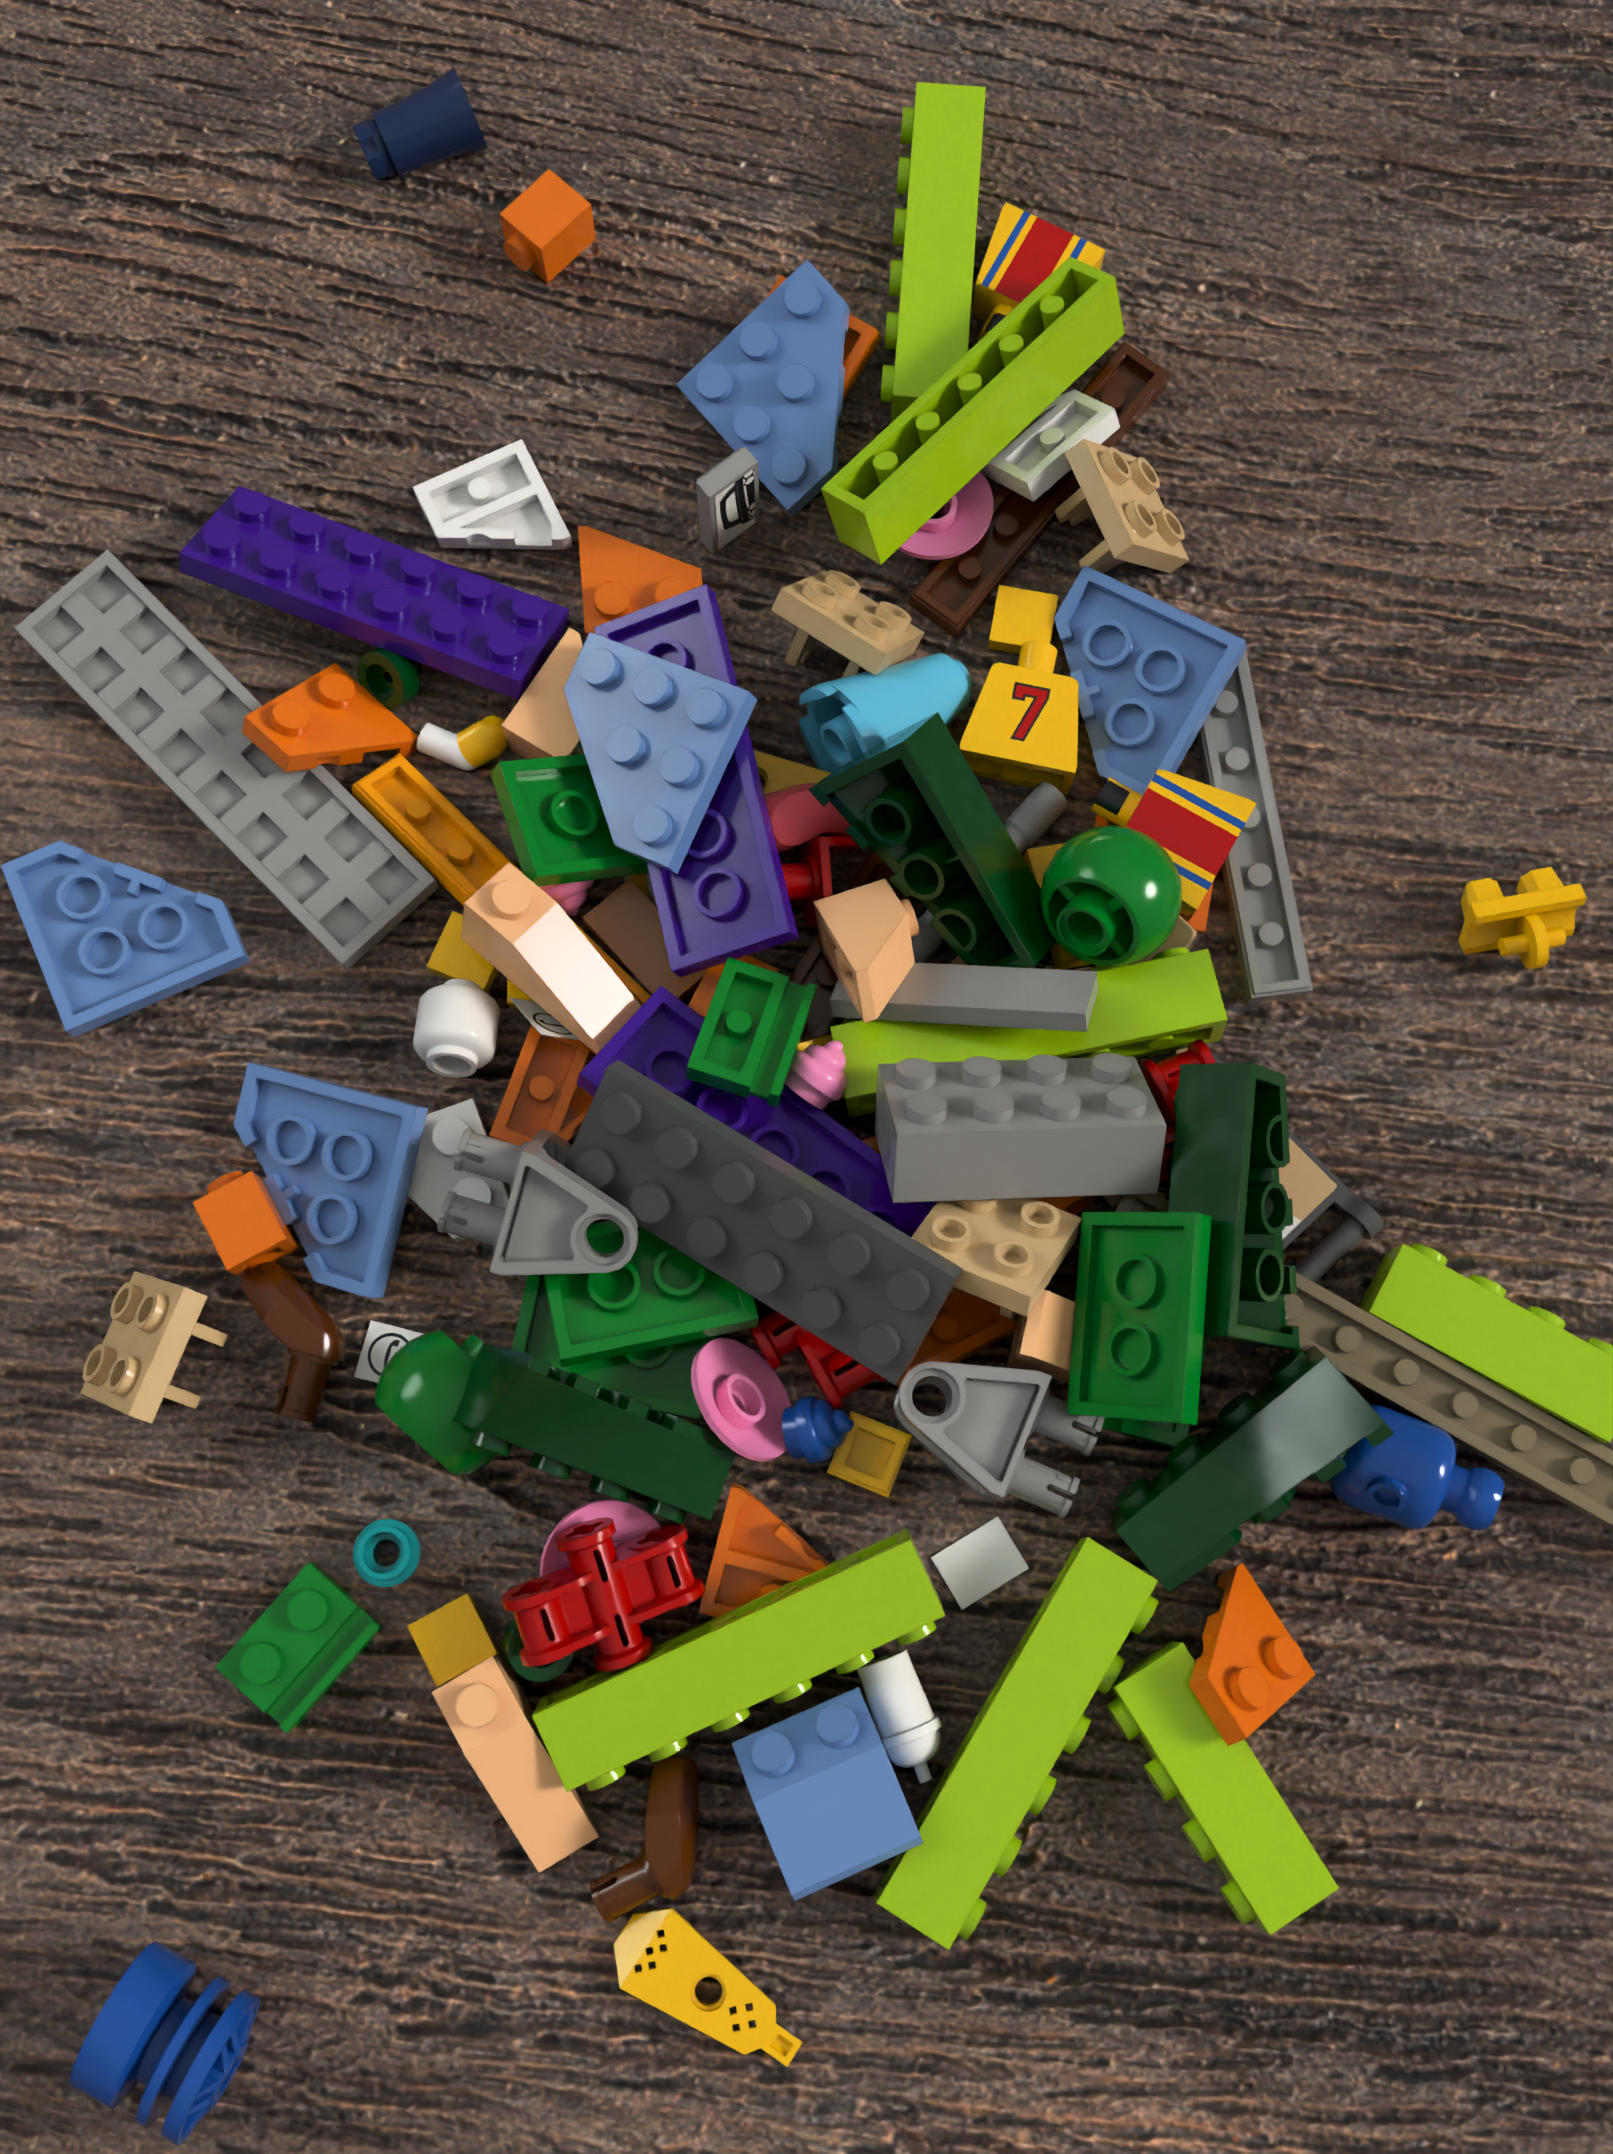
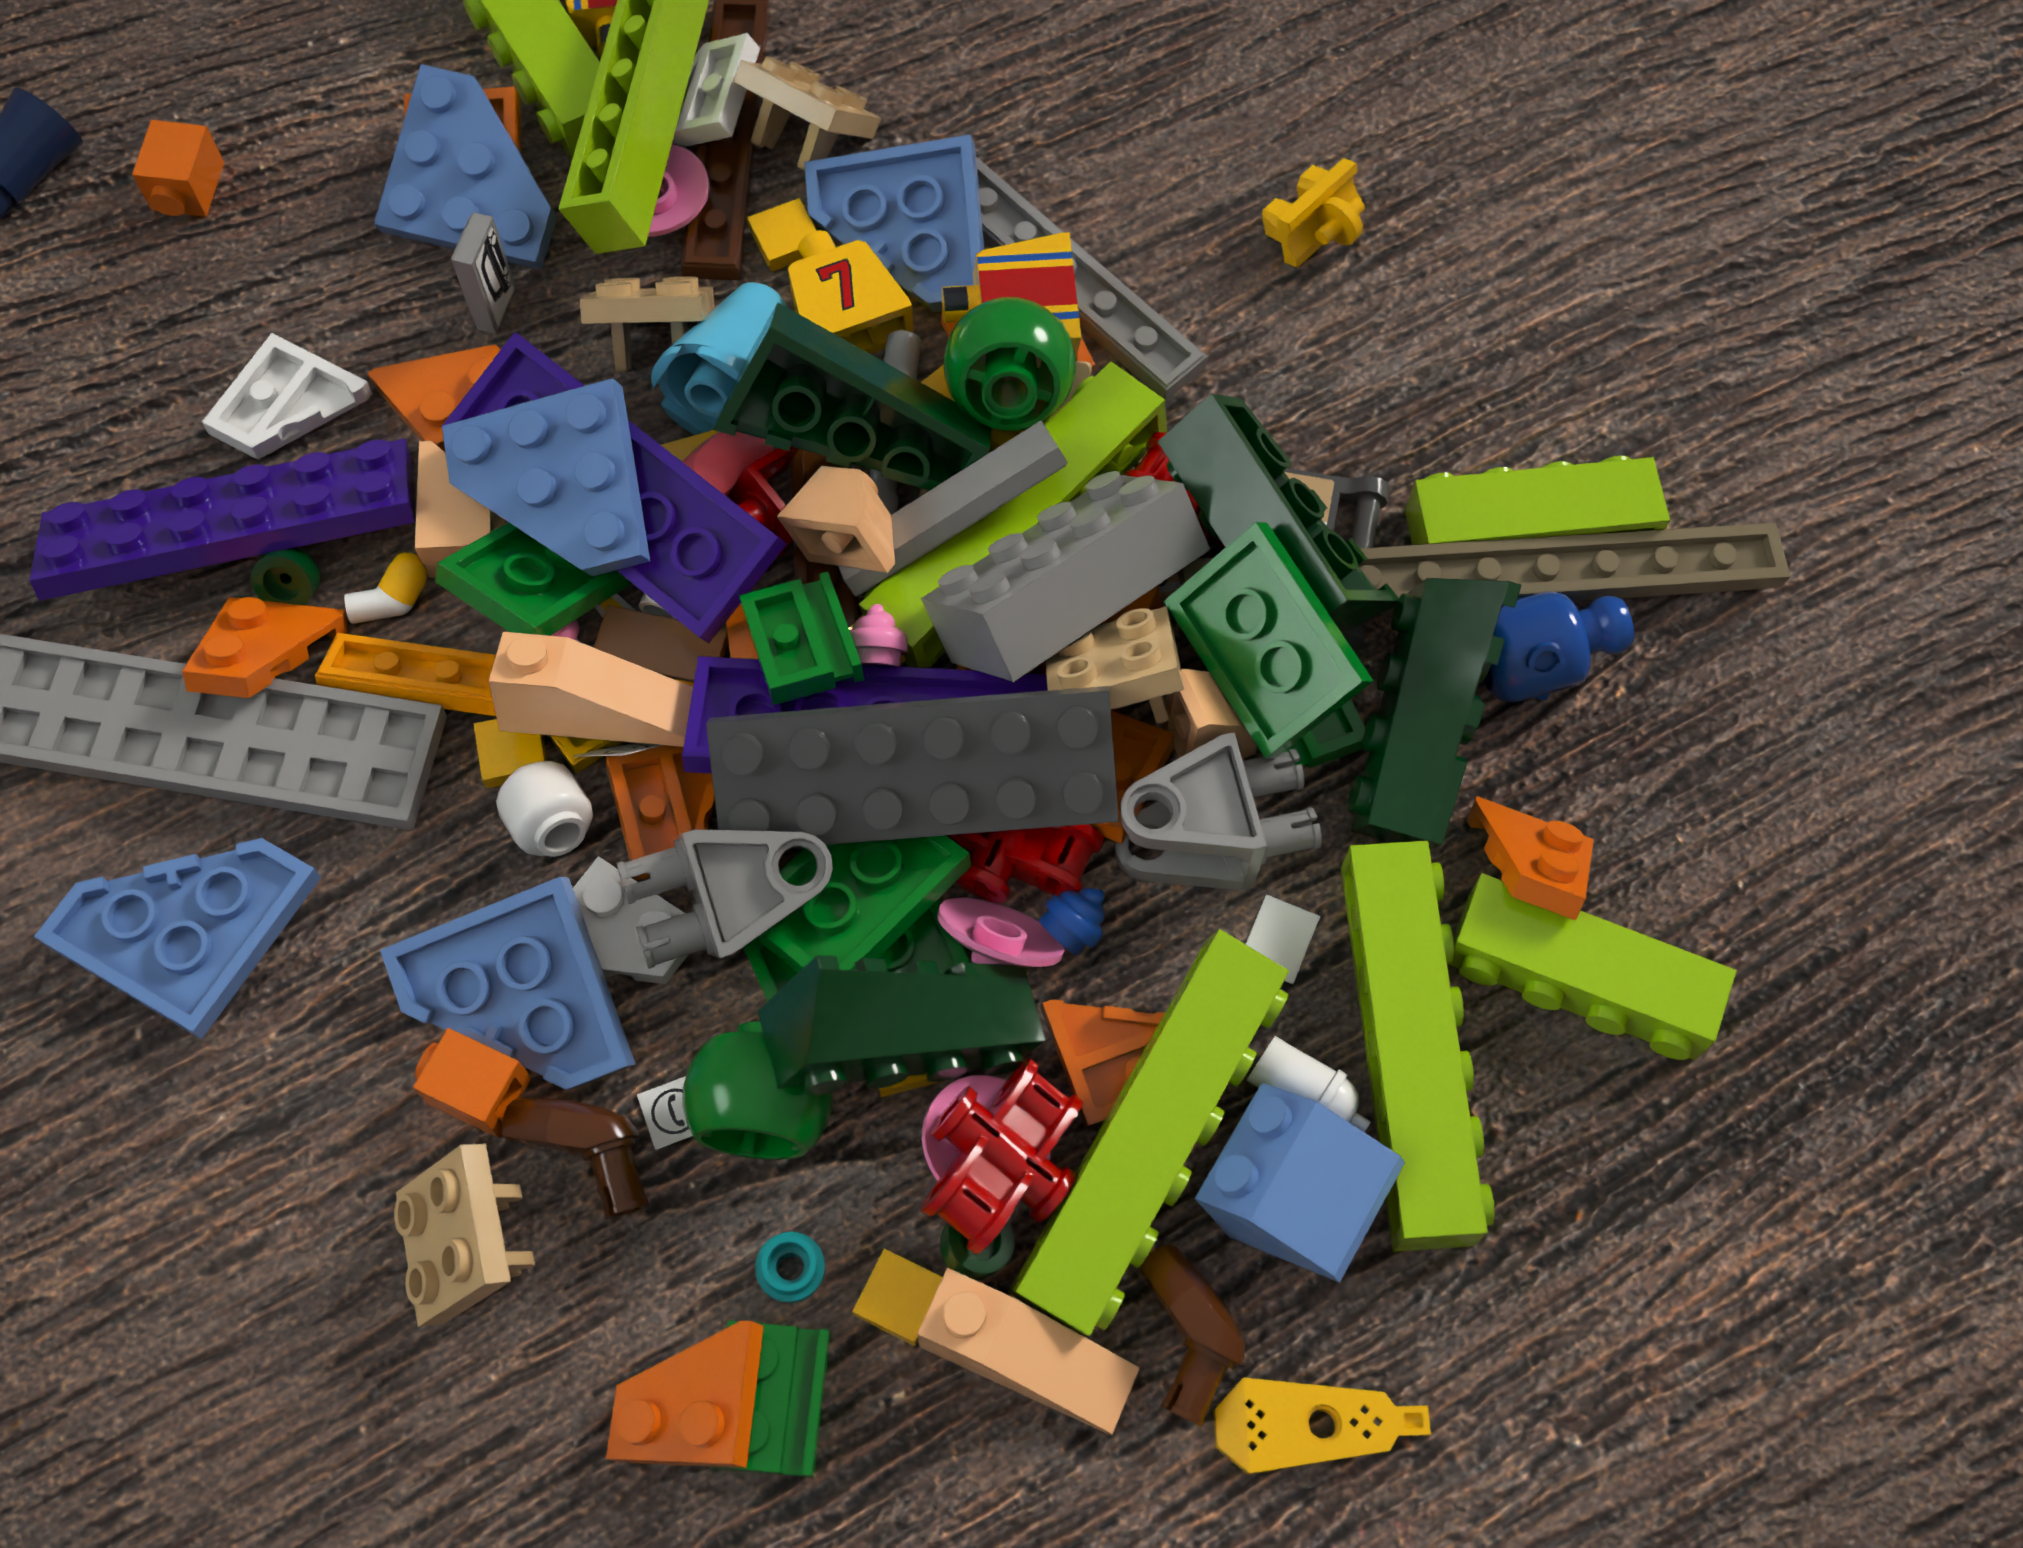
camera: 35 degrees left, 10 degrees down
(232, 1613) = (691, 1405): none -> orange wing
(870, 1455) = (1133, 916): yellow tile -> none

